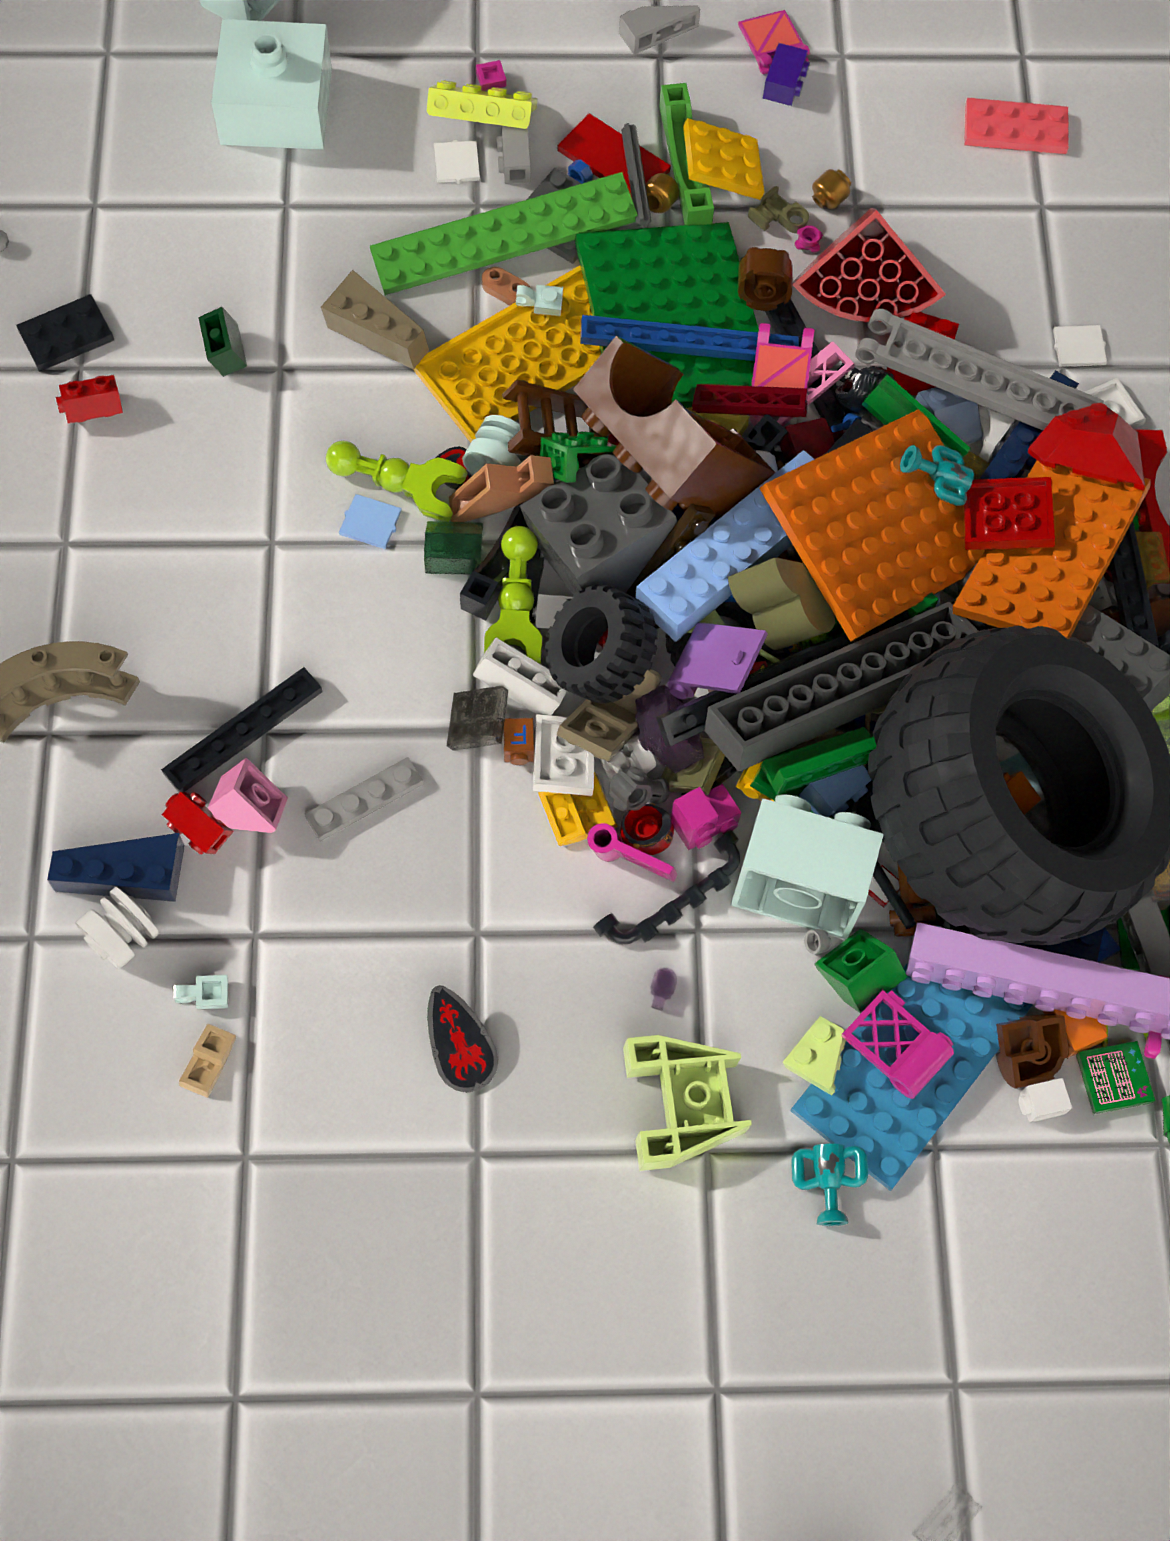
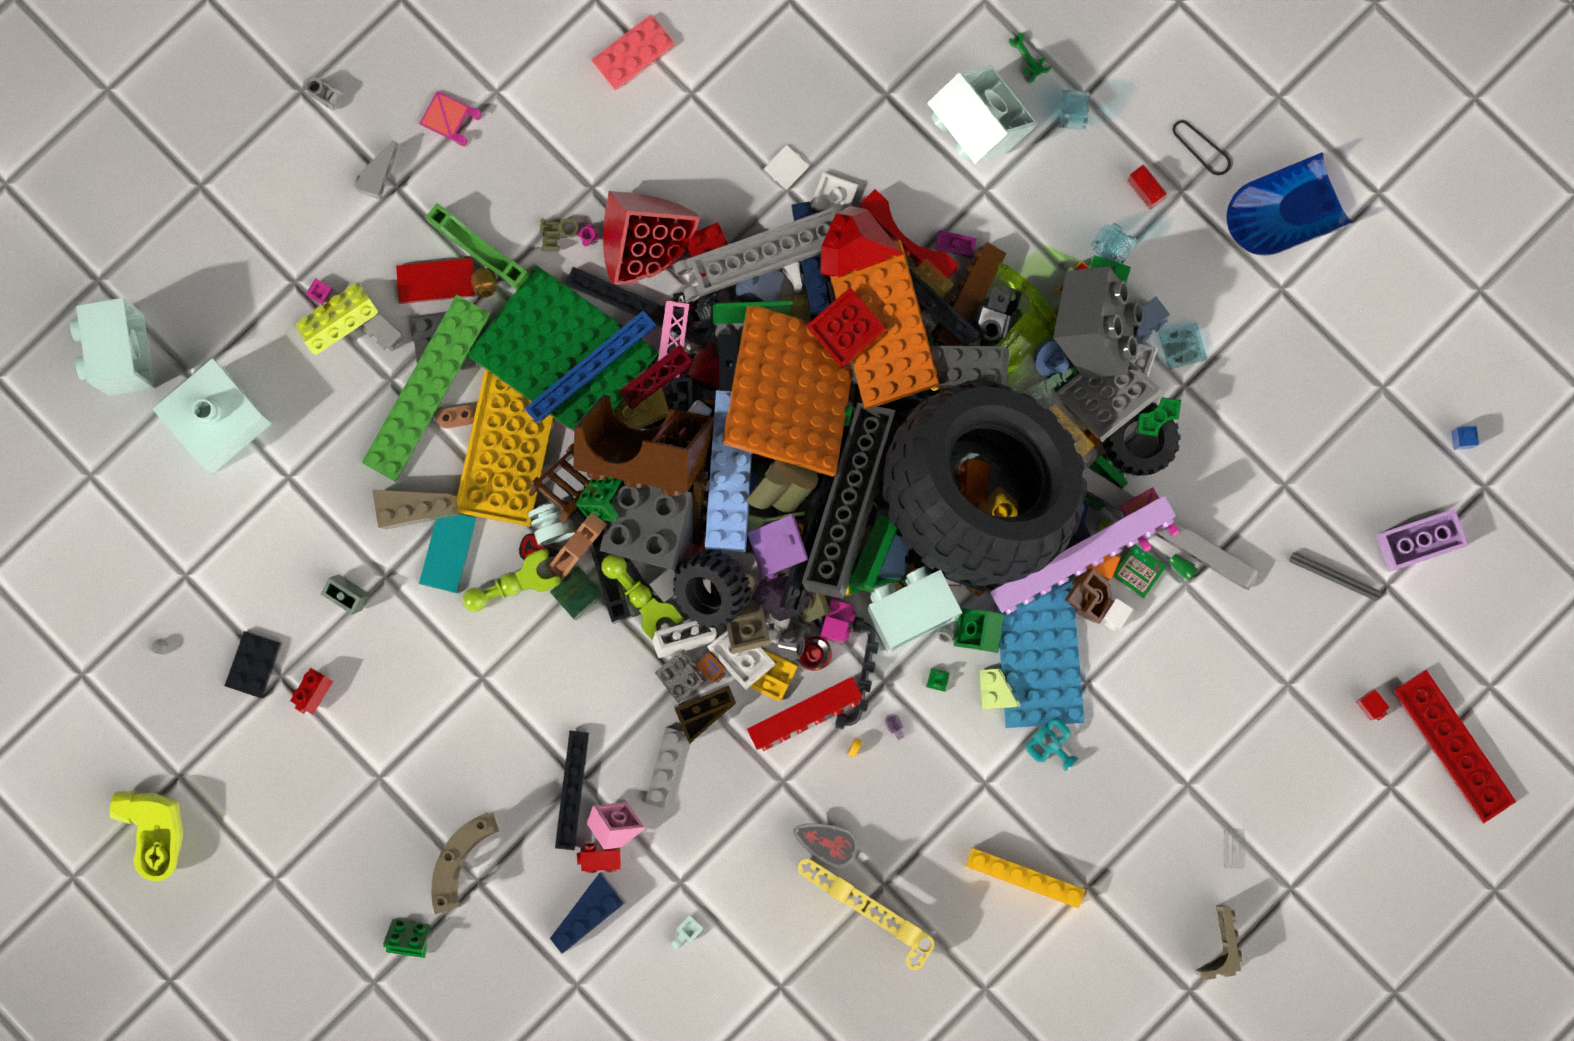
camera: 35 degrees left, 15 degrees up
(119, 926) = (617, 944): white wheel -> none
(208, 1060) = (719, 961): tan slope -> none
(365, 397) = (448, 553): none -> teal tile
(370, 521) = (520, 619): light blue piece -> none
(422, 1108) = (841, 889): none -> light yellow beam
(456, 161) = (352, 363): white piece -> none
(465, 773) = (704, 710): none -> dark brown wedge
(545, 299) = (488, 409): light aqua plate -> none
(575, 877) = (805, 713): none -> red brick
(580, 171) = (429, 309): blue tile -> none
(593, 967) = (854, 747): none -> yellow tile
(609, 847) = (806, 681): dark pink piece -> none
(636, 174) = (462, 285): dark grey axle -> none
(651, 1303) = (1025, 878): none -> yellow brick
(693, 1098) = (958, 767): yellowish green wedge -> none
(723, 159) = (500, 231): yellow plate -> none
(760, 983) = (937, 680): none -> green tile
(765, 278) = (594, 291): reddish brown brick -> none
(782, 364) = (653, 339): coral flag -> none
(785, 74) = (479, 138): dark purple brick -> none
(831, 189) = (572, 193): pearl gold head -> none
(848, 420) = (713, 334): blue hand -> none
(921, 1058) = (1045, 653): dark pink piece -> none
(950, 476) = (795, 335): teal piece -> none

